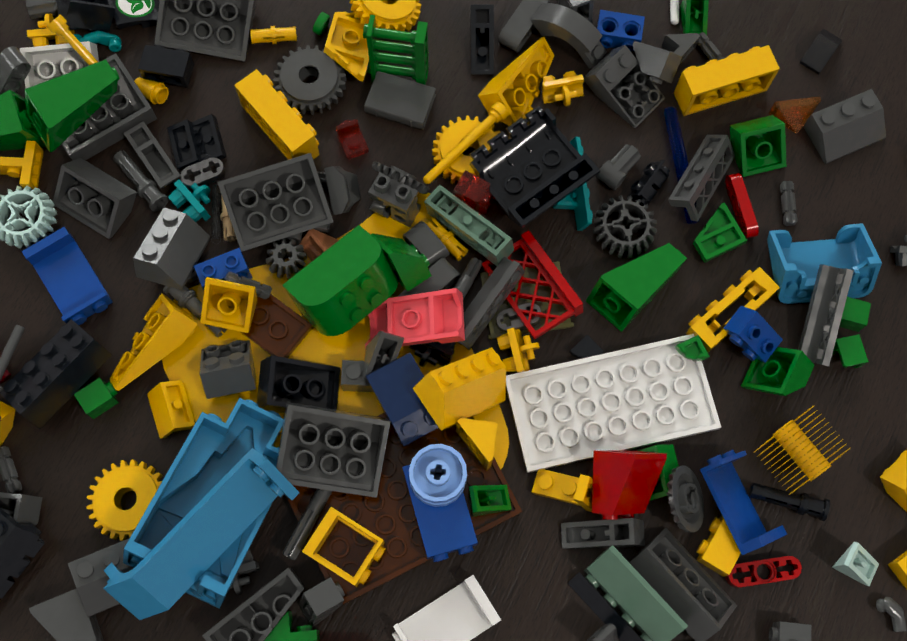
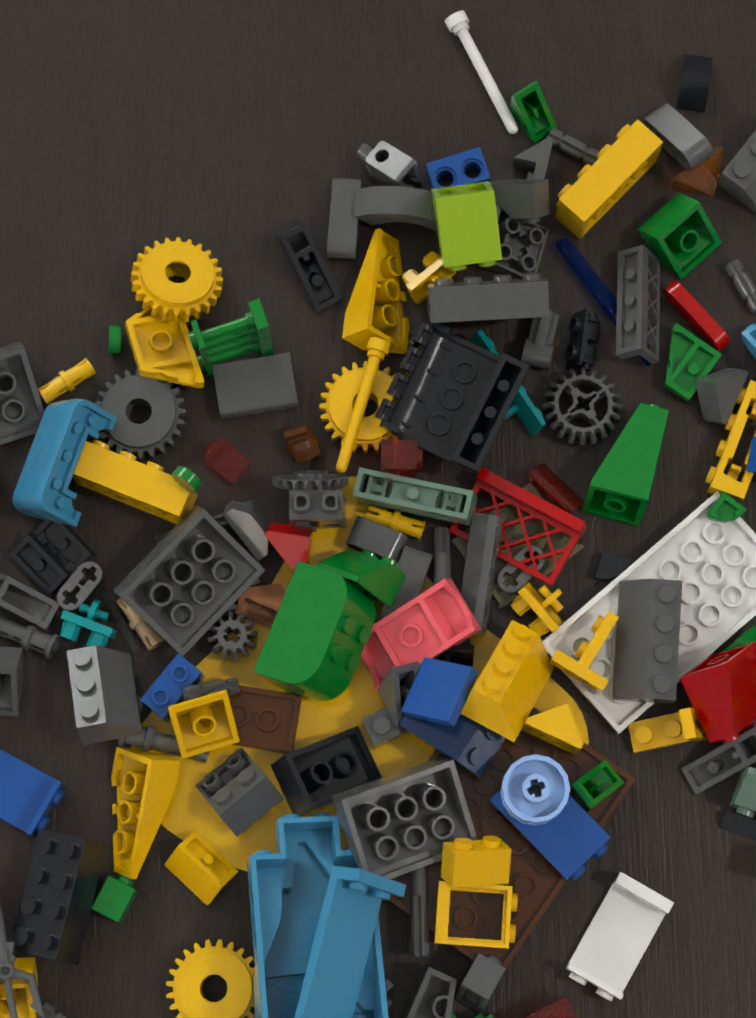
camera: 25 degrees left, 5 degrees up
(209, 93) = (53, 458): none -> dark azure windscreen
(310, 126) = (186, 479): none -> green tile
(363, 213) = (290, 542): none -> red slope
(366, 507) = (475, 862): none -> yellow brick
(406, 365) = (439, 691): none -> blue tile
(411, 153) = (302, 443): none -> reddish brown piece
(534, 400) = (587, 653): none -> yellow bracket
(574, 273) = (555, 488): none -> clear red slope
(584, 413) = (647, 641): none -> dark grey slope
(594, 111) = (488, 299): none -> dark grey slope
(606, 55) = (467, 225): none -> lime slope
(730, 267) = (719, 393): none -> dark grey slope
(793, 78) = (679, 137): none -> dark grey beam

